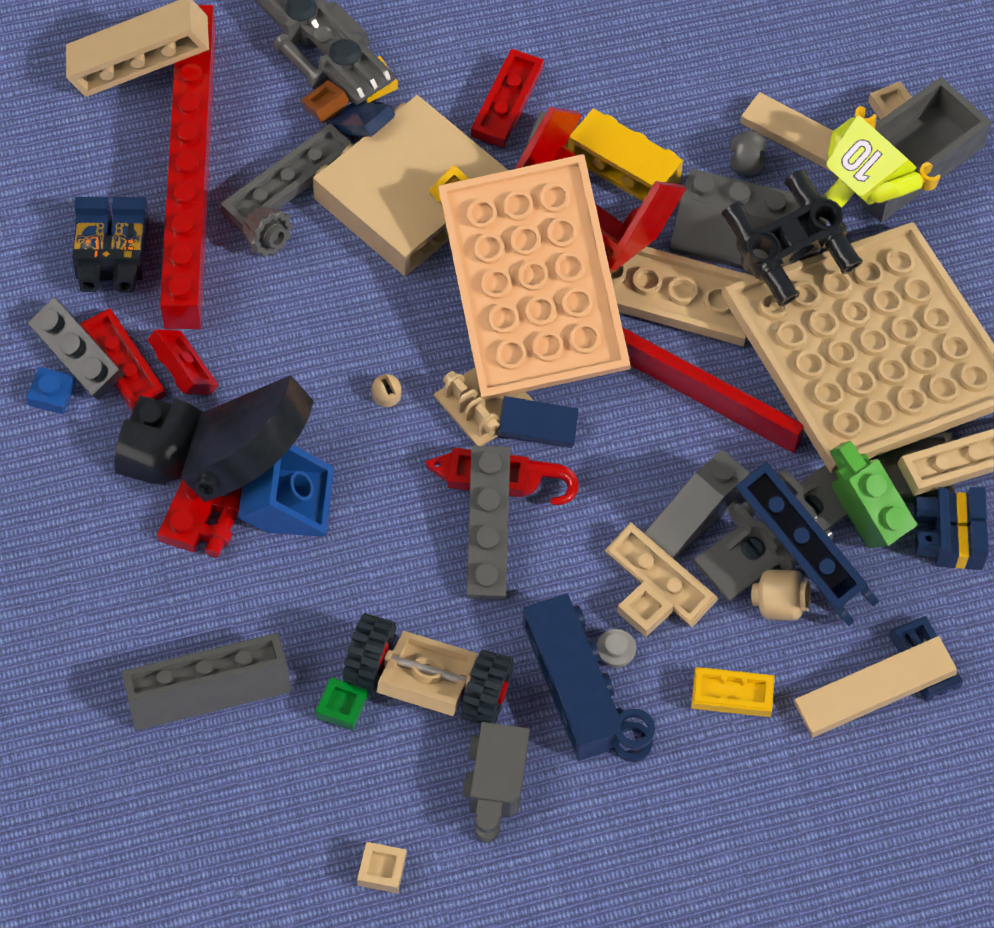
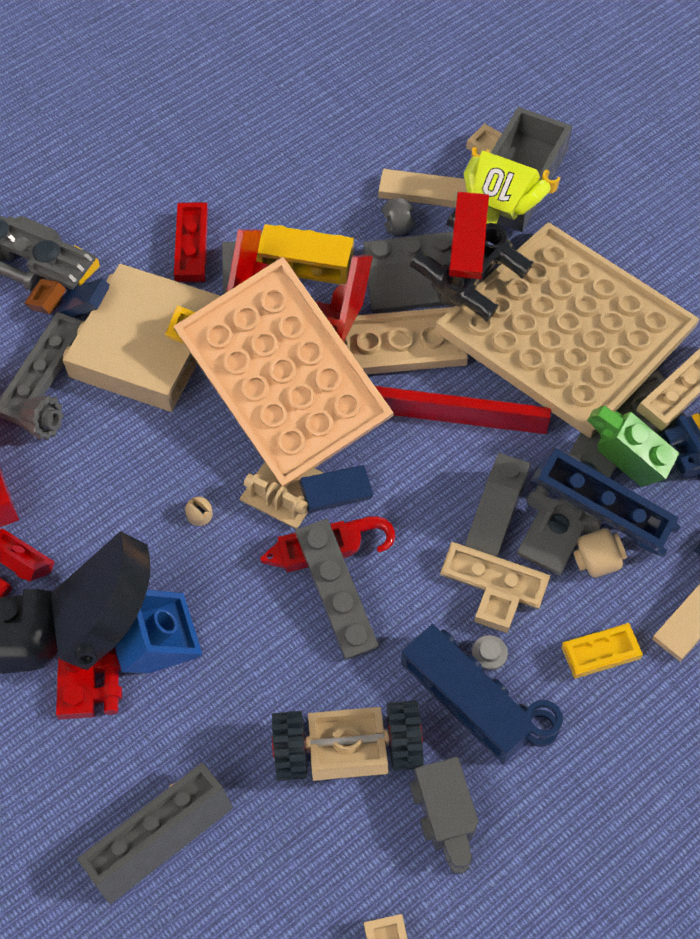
camera: 20 degrees left, 0 degrees up
(342, 704) = (284, 801): green plate -> none
(797, 204) = (469, 235): none -> red tile

